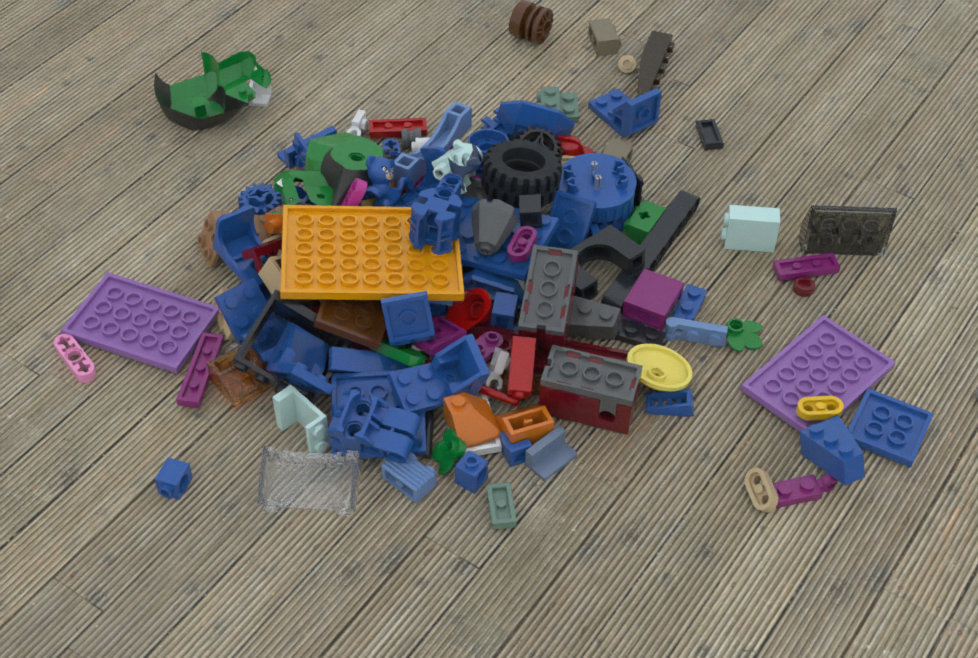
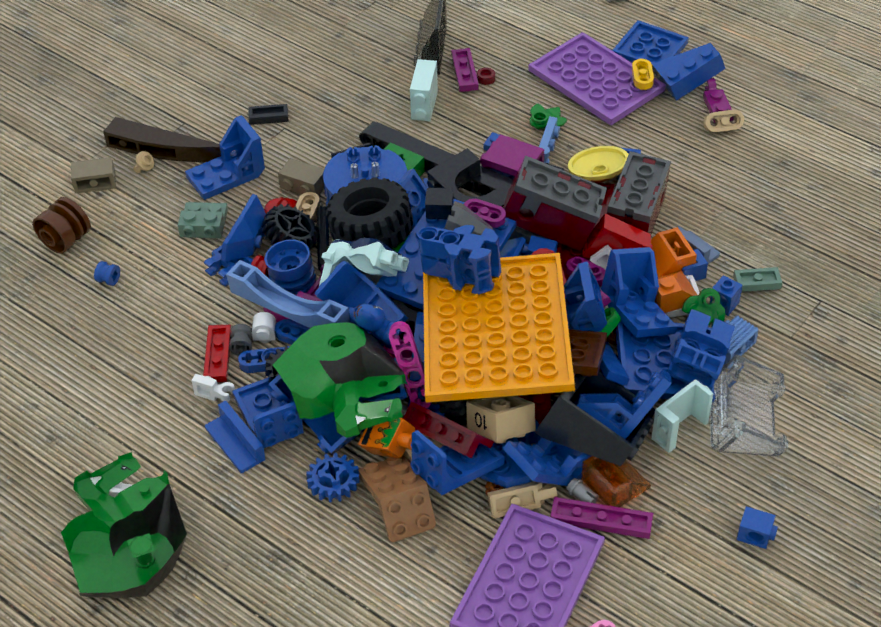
camera: 85 degrees left, 0 degrees up
(485, 58) = (107, 273): none -> blue wheel

